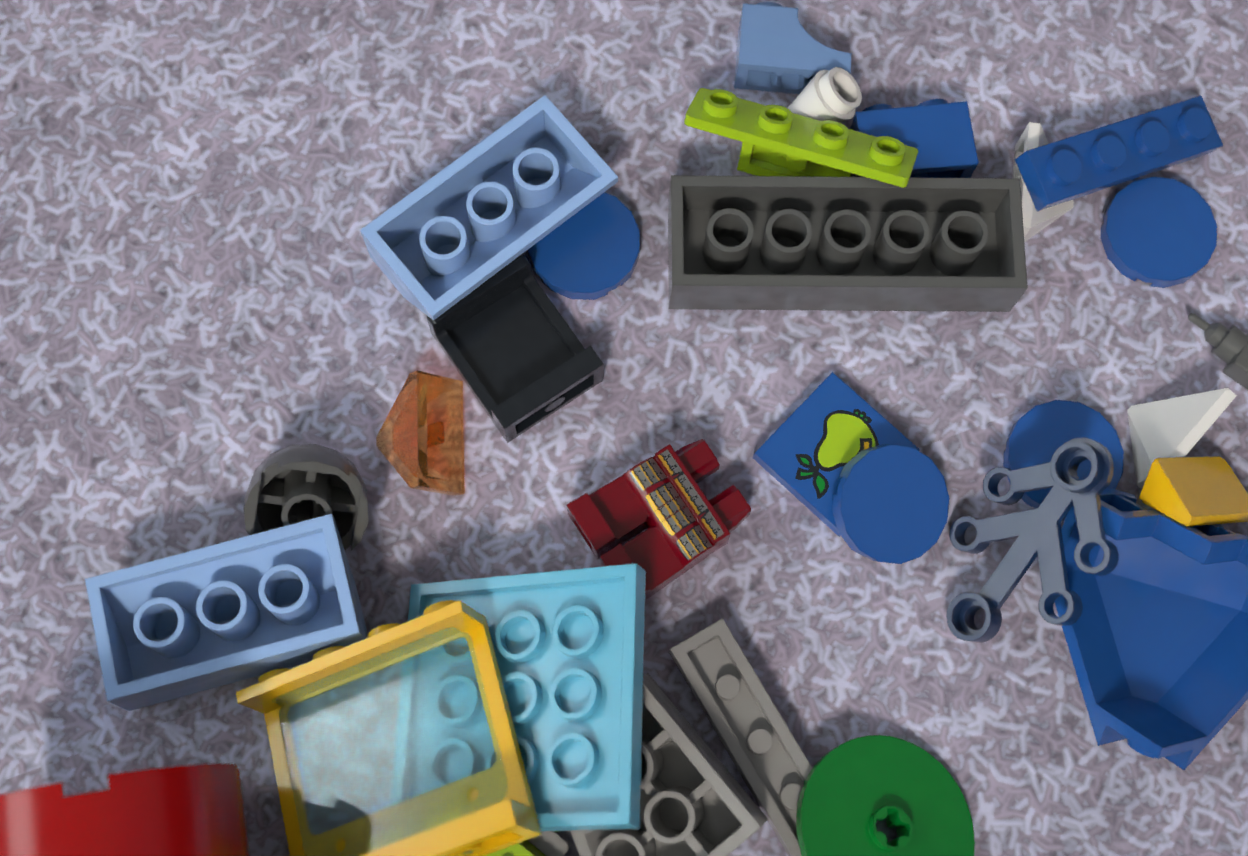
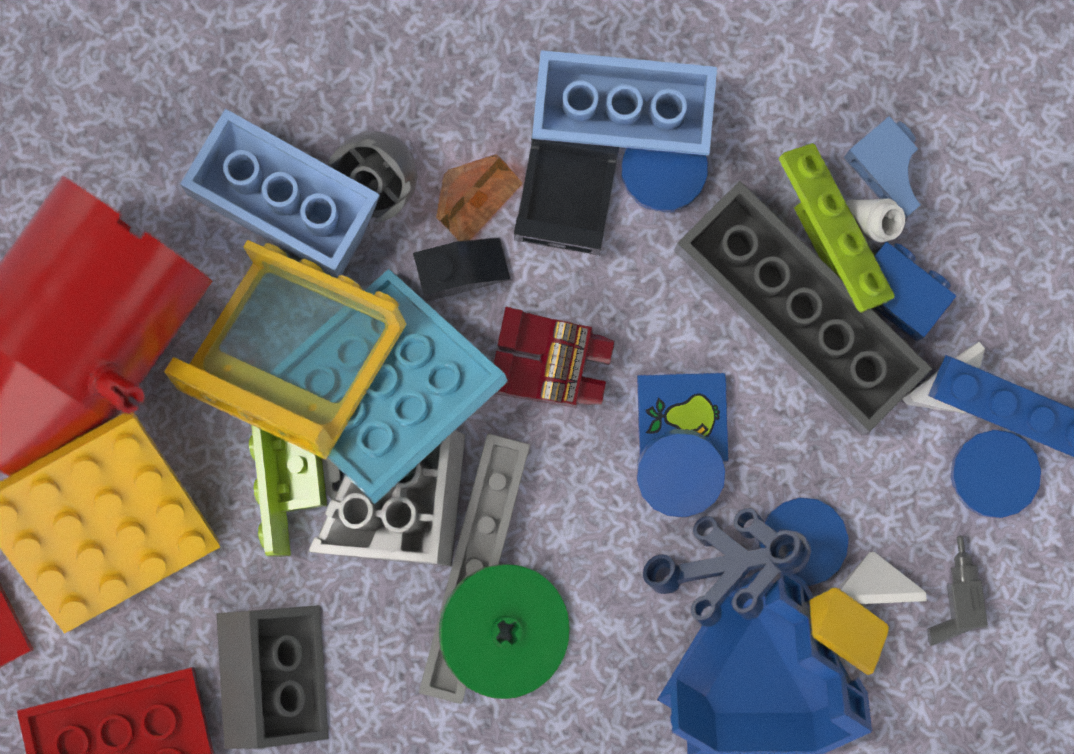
camera: 50 degrees right, 10 degrees up
(480, 515) = (460, 267): none -> black slope

